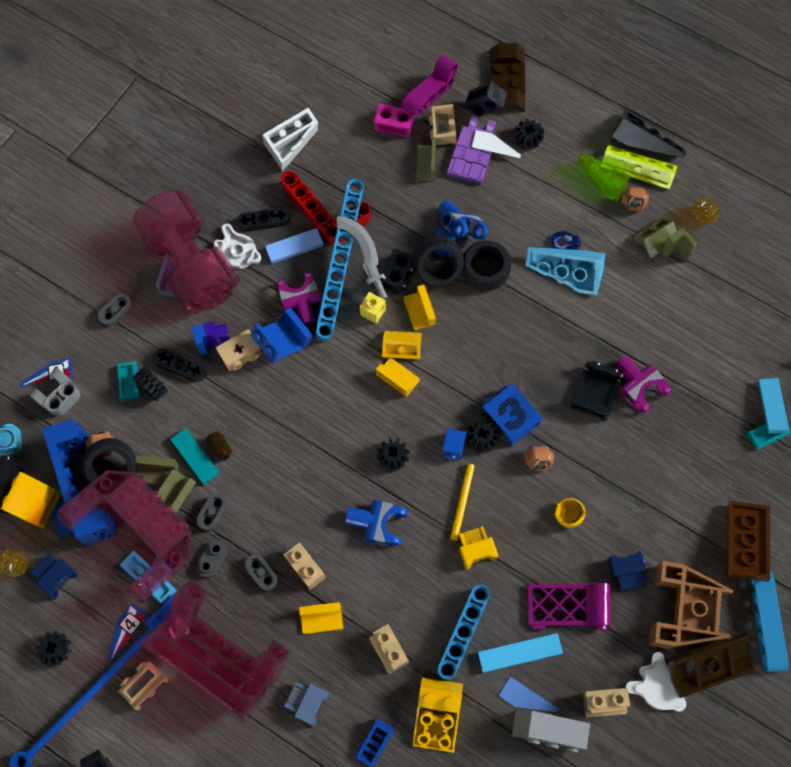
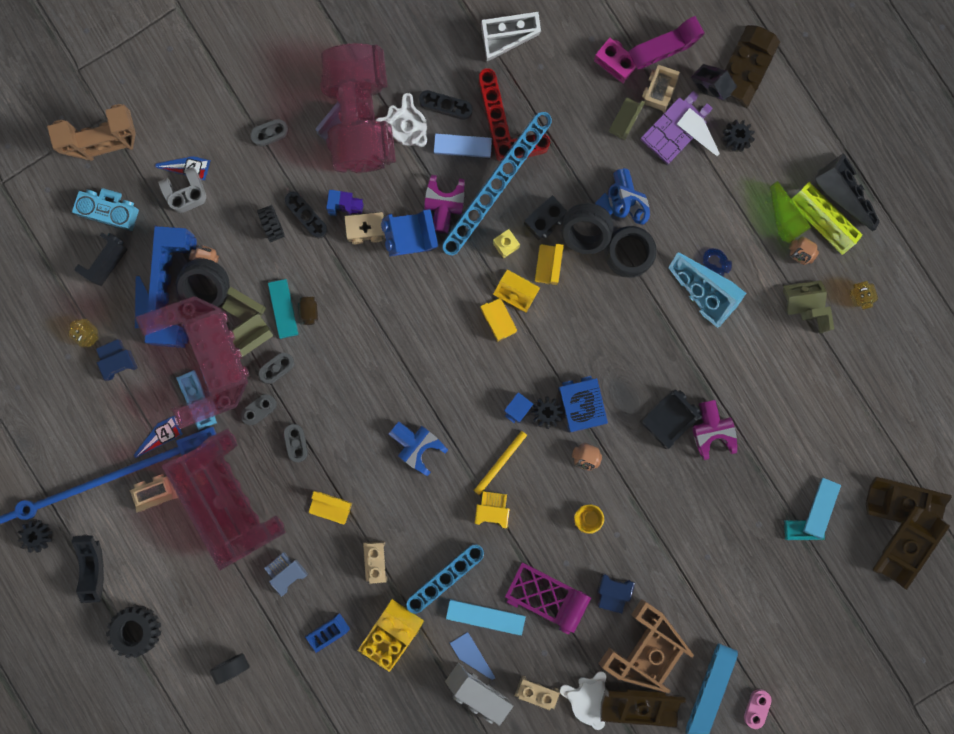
camera: 15 degrees right, 15 degrees up
(30, 500) = (120, 286): yellow slope -> none
(59, 652) = (90, 433): black gear -> none
(127, 385) = (255, 200): teal tile -> none
(304, 566) = (335, 456): tan brick -> none
(368, 249) = (526, 188): light grey sword -> none
(393, 447) = (464, 395): black gear -> none
(748, 541) = (731, 618): reddish brown plate -> none

